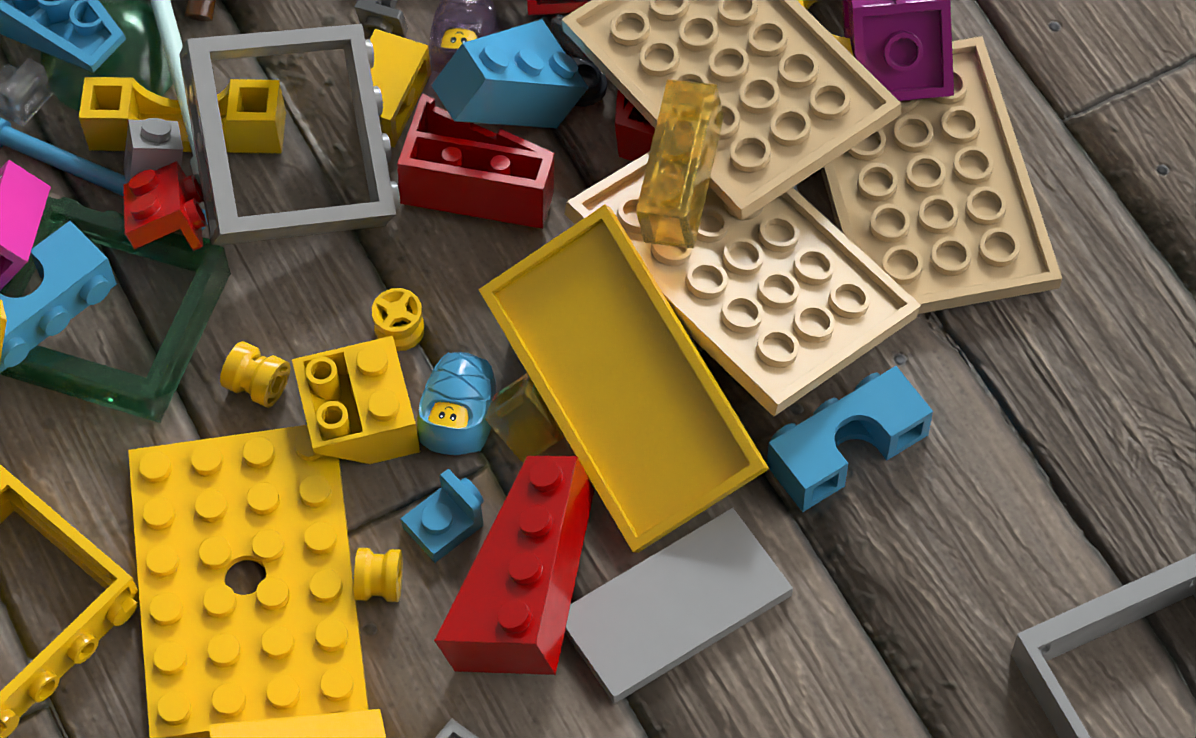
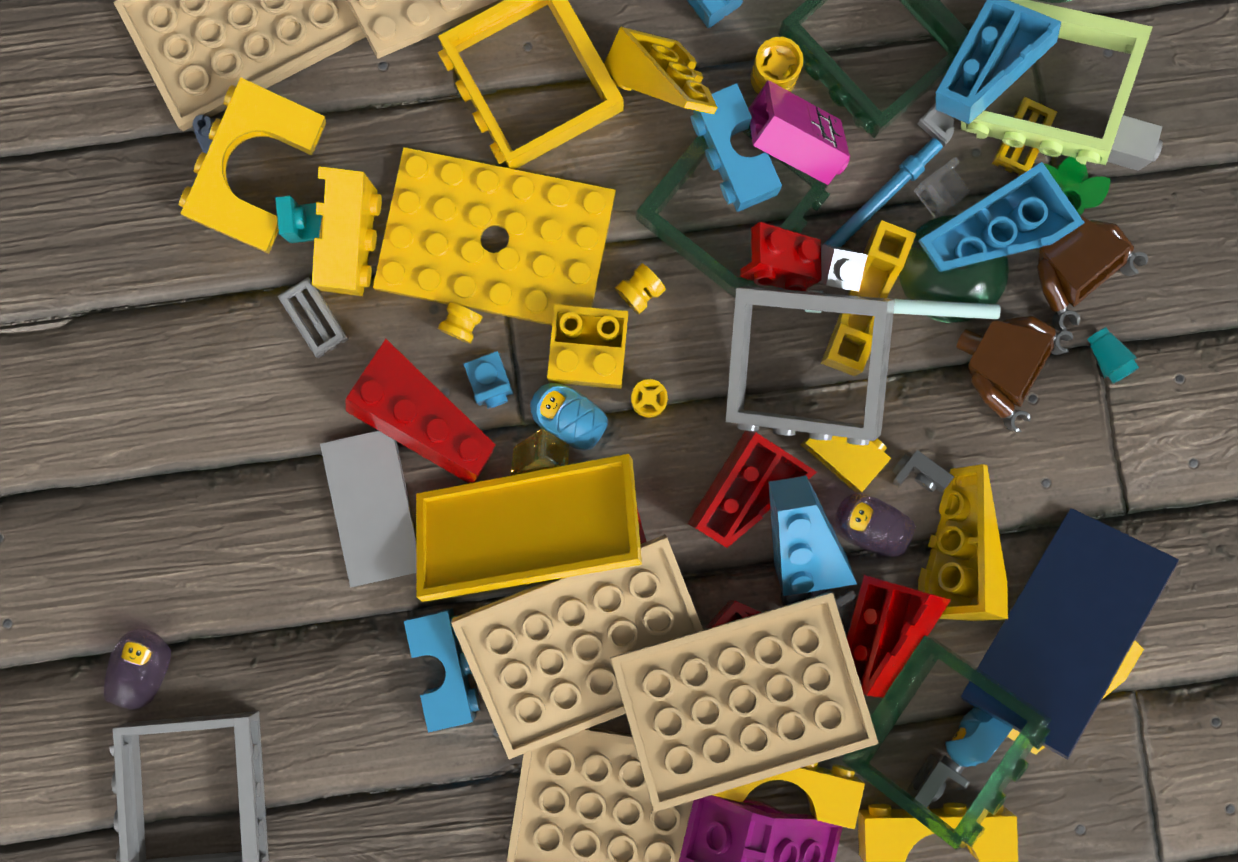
camera: 110 degrees right, 25 degrees up
(680, 164) = (655, 627): clear yellow brick -> none

